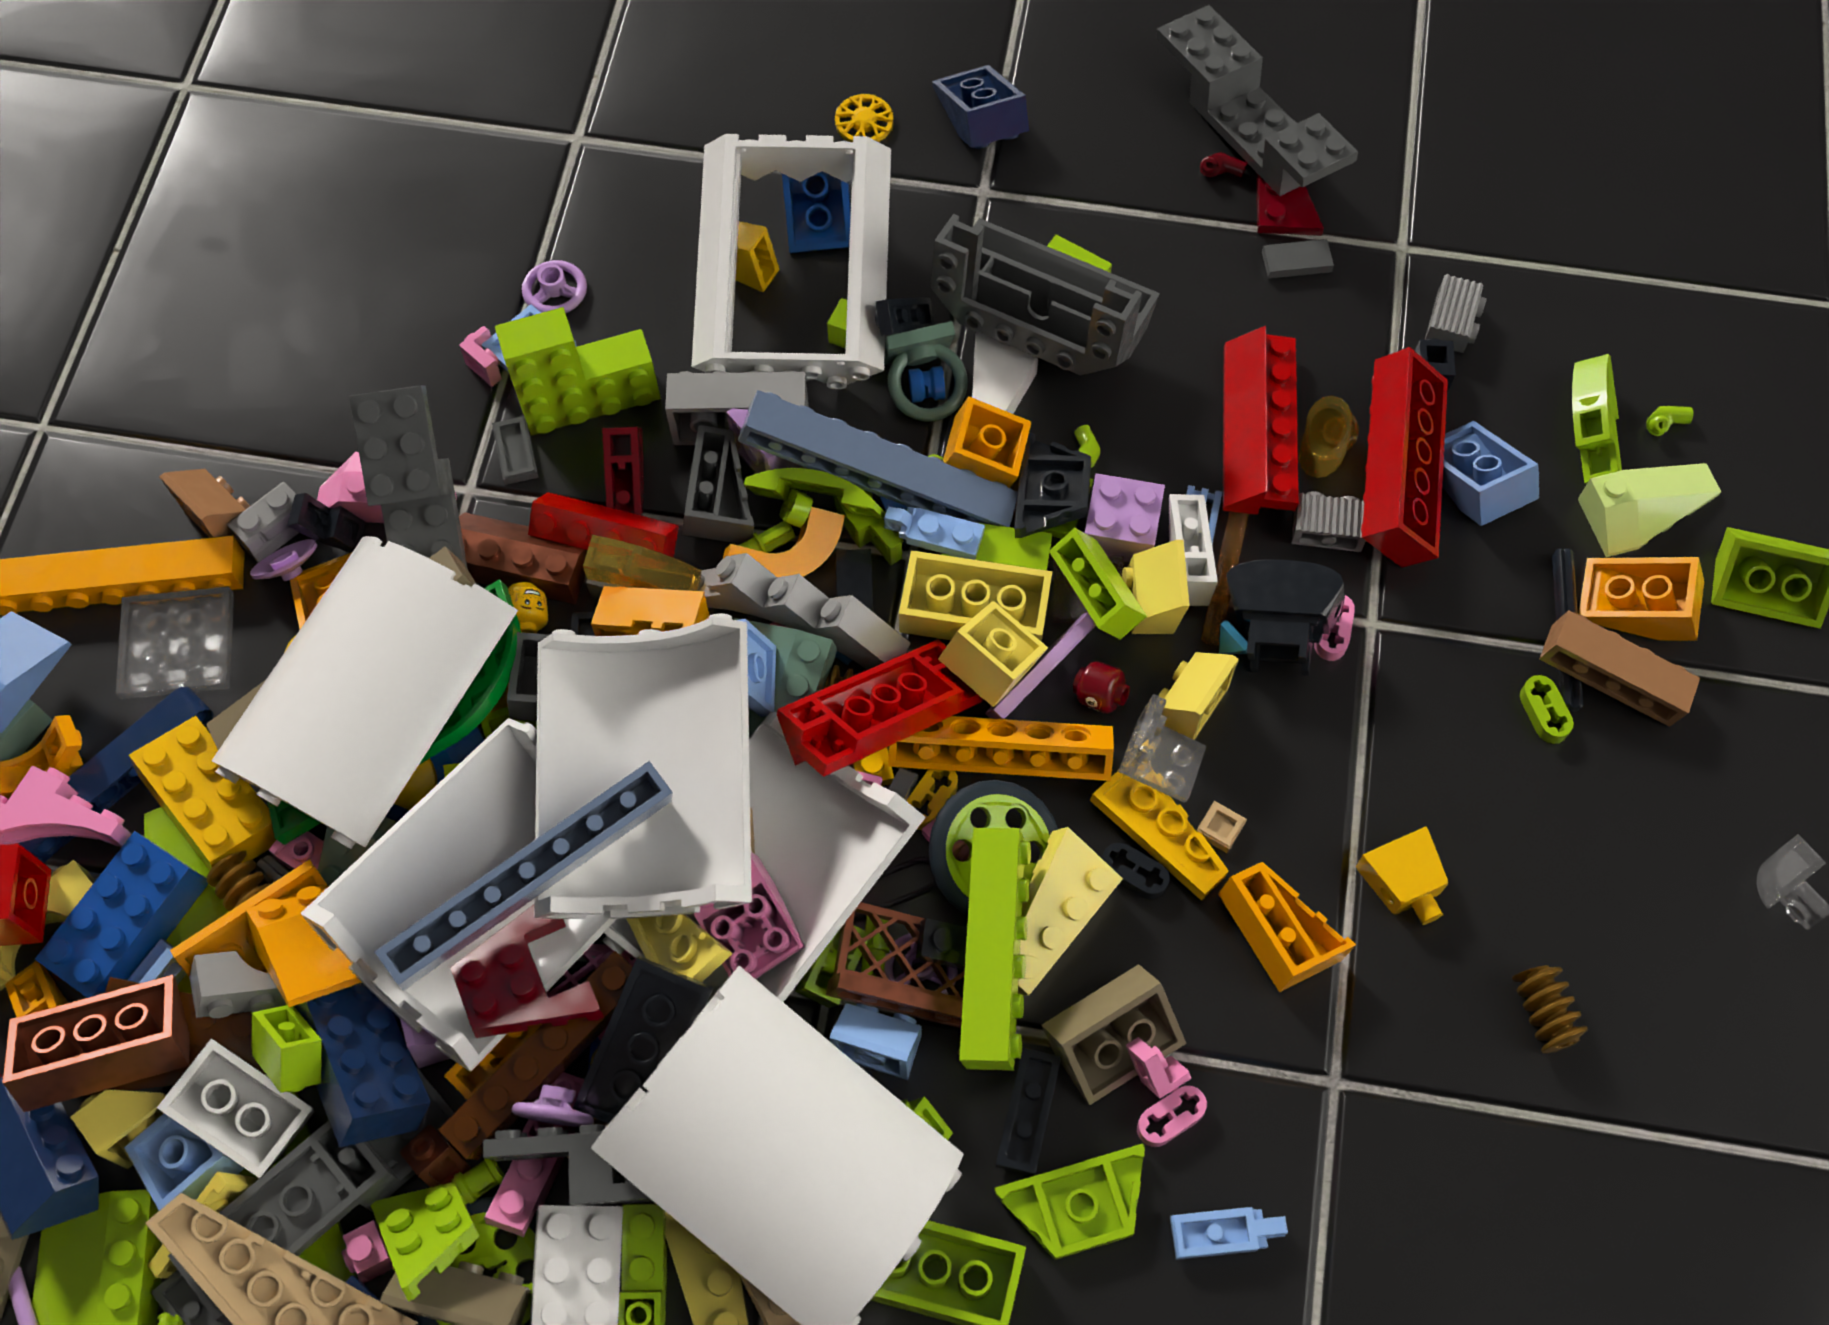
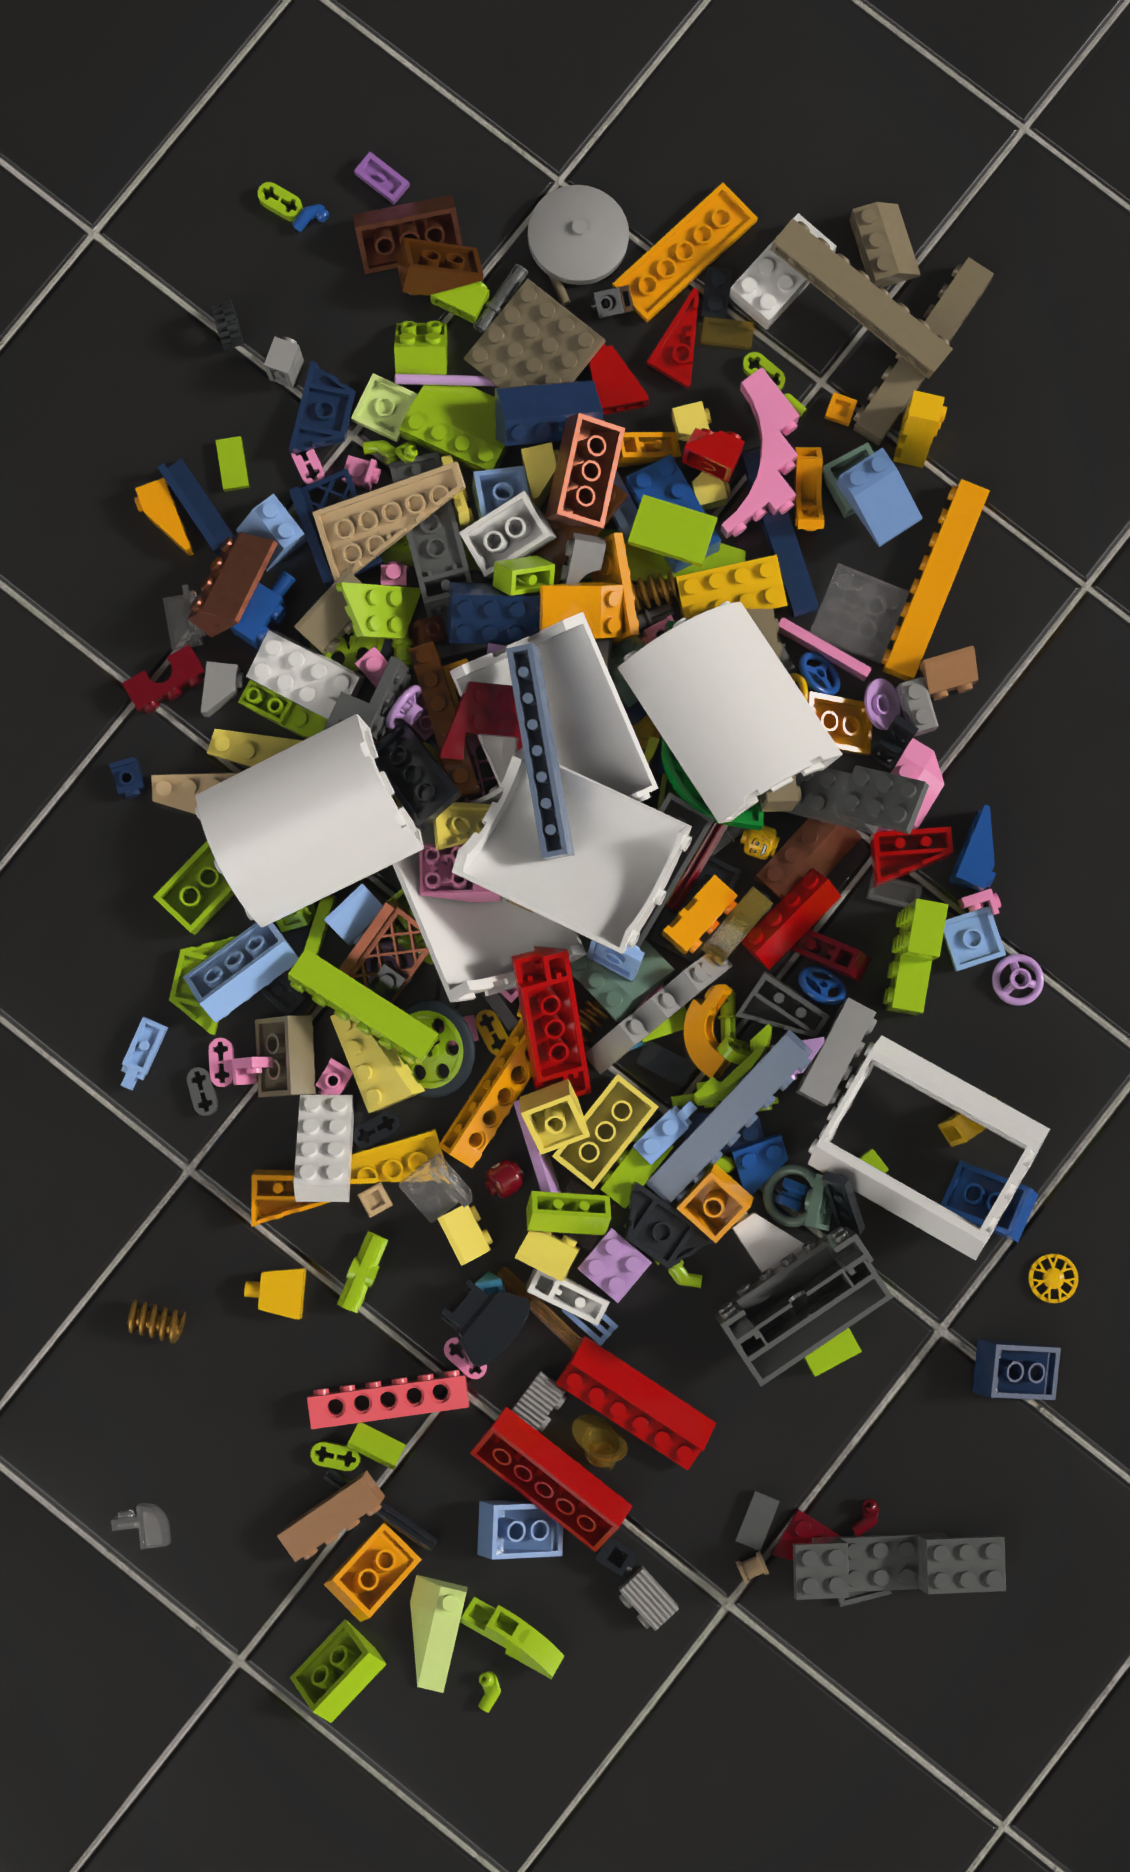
camera: 120 degrees right, 20 degrees up
(142, 891) = (672, 530): none -> lime tile
(241, 648) = (819, 646): none -> bright pink tile
(273, 644) = (816, 677): none -> blue piece
(434, 362) = (976, 857): none -> blue slope
(474, 456) = (900, 853): none -> red wedge
(673, 465) = (818, 988): none -> blue piece
(911, 429) = (759, 1161): none -> blue wing
(930, 1081) = (319, 925): none -> lime beam
(1036, 1151) = (240, 969): none -> light blue slope
(1096, 963) = (336, 1069): none -> bright pink brick
(1201, 902) = (324, 1148): none -> white brick
(1217, 1113) = (195, 1091): none -> dark grey beam
(1317, 790) = (362, 1272): none -> lime piece
(1349, 237) = (752, 1567): none -> tan bush
(1464, 686) = (322, 1416): none -> coral brick
(1502, 668) = (376, 1445): none -> lime tile

